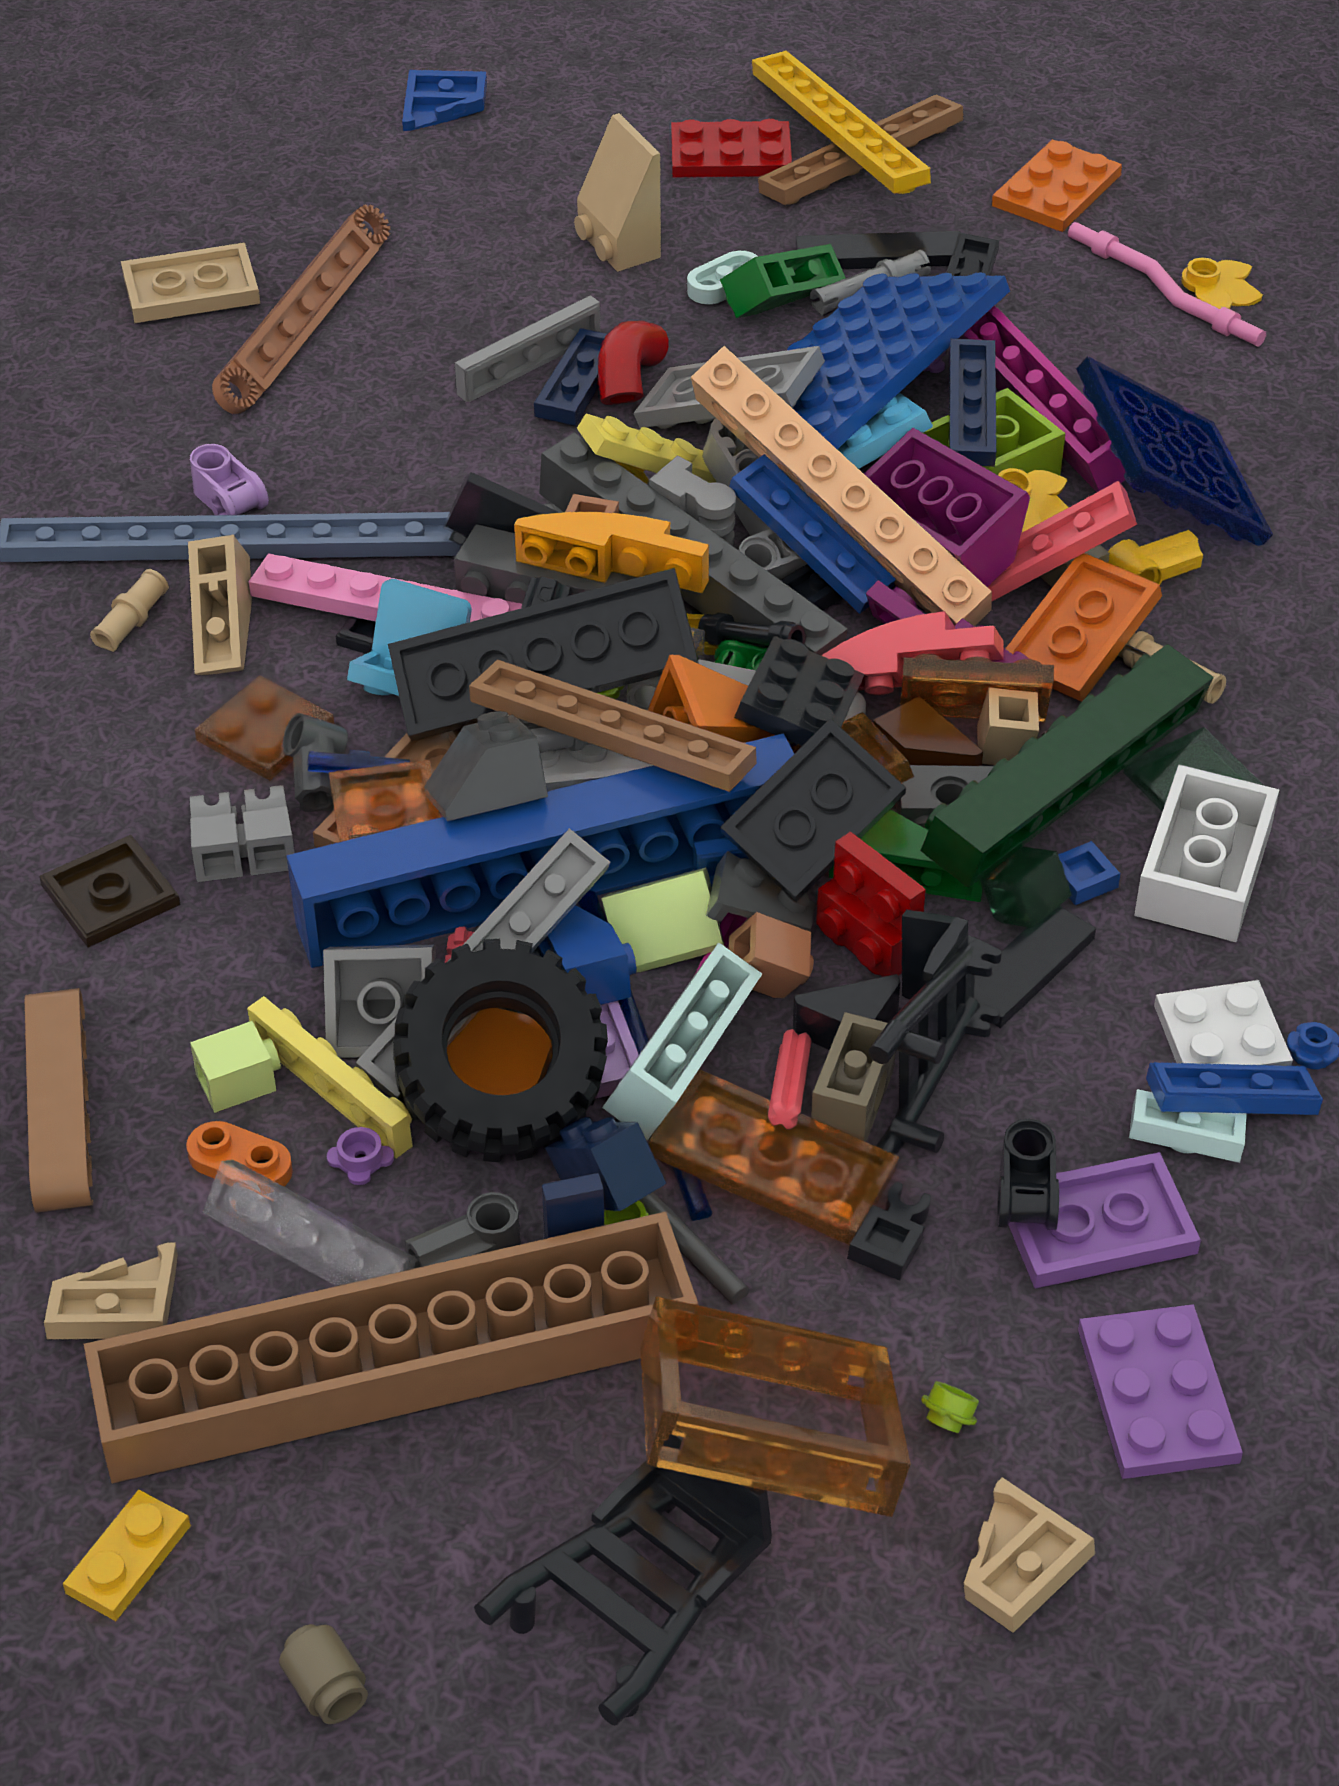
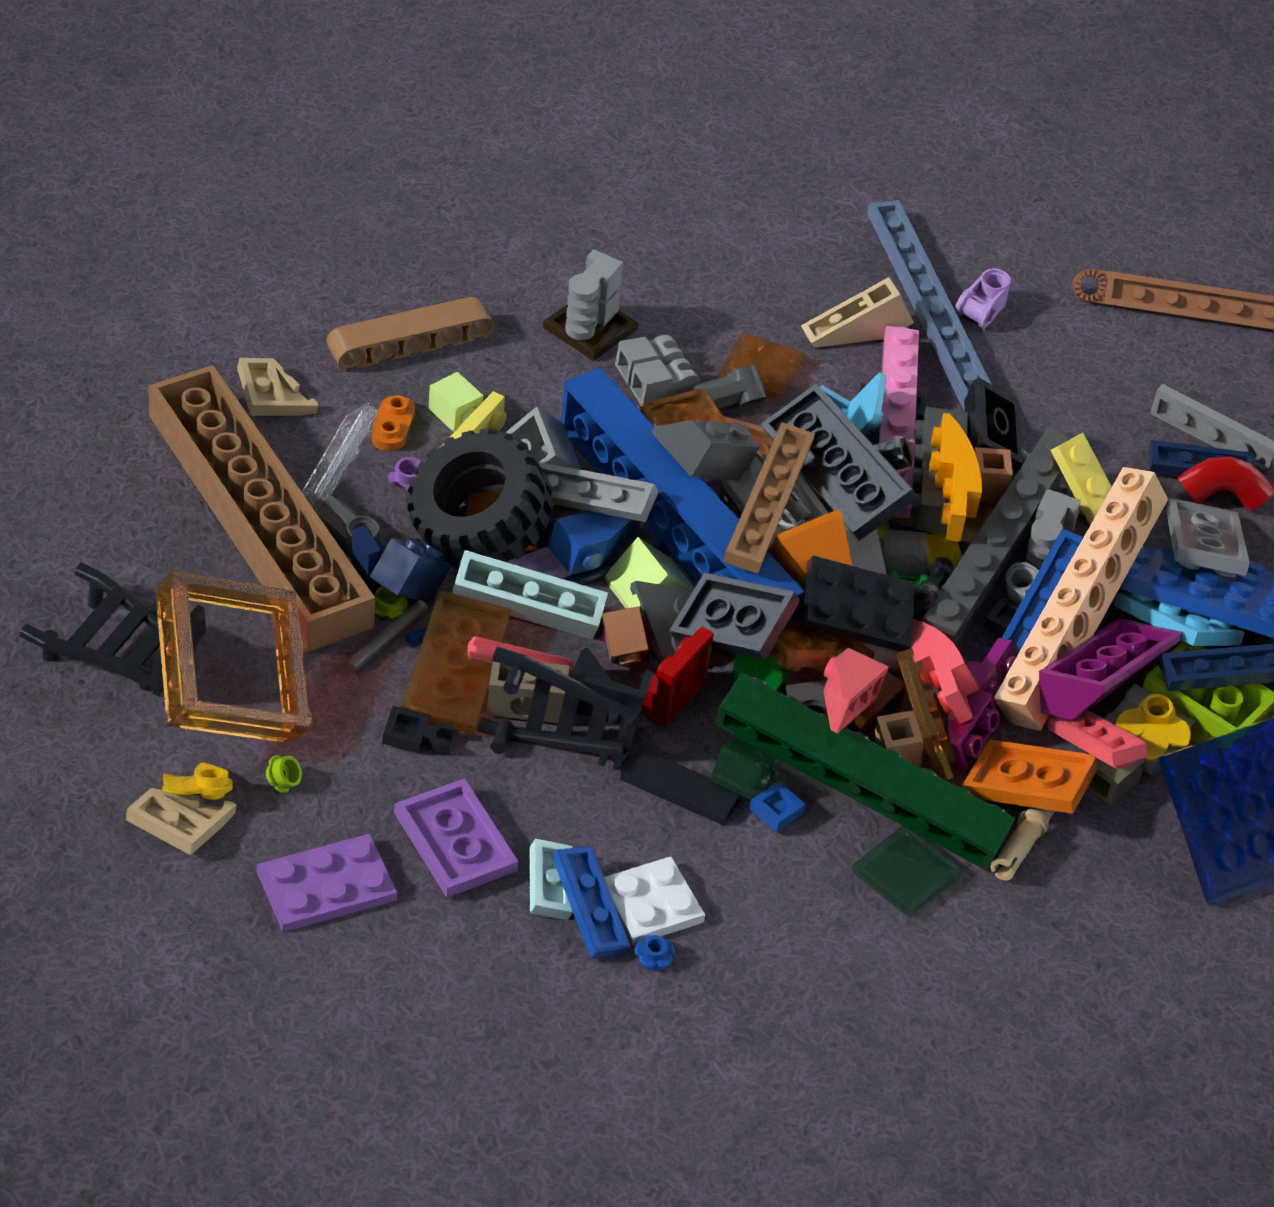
camera: 70 degrees right, 0 degrees up
(98, 848) = (593, 295): none -> light grey legs
(126, 1555) = (103, 431): yellow plate -> none
(129, 610) = (840, 279): tan pin -> none
(190, 282) = (1202, 241): tan plate -> none
(323, 1673) = (38, 518): dark tan brick -> none
(355, 759) = (720, 398): clear blue bar -> none
(957, 1517) = (207, 780): none -> yellow plate
(965, 726) = (851, 686): none -> coral slope
(1028, 1184) = (463, 779): black piece -> none
(1159, 558) = (1132, 817): yellow piece -> none
(1206, 853) = (809, 865): white brick -> none

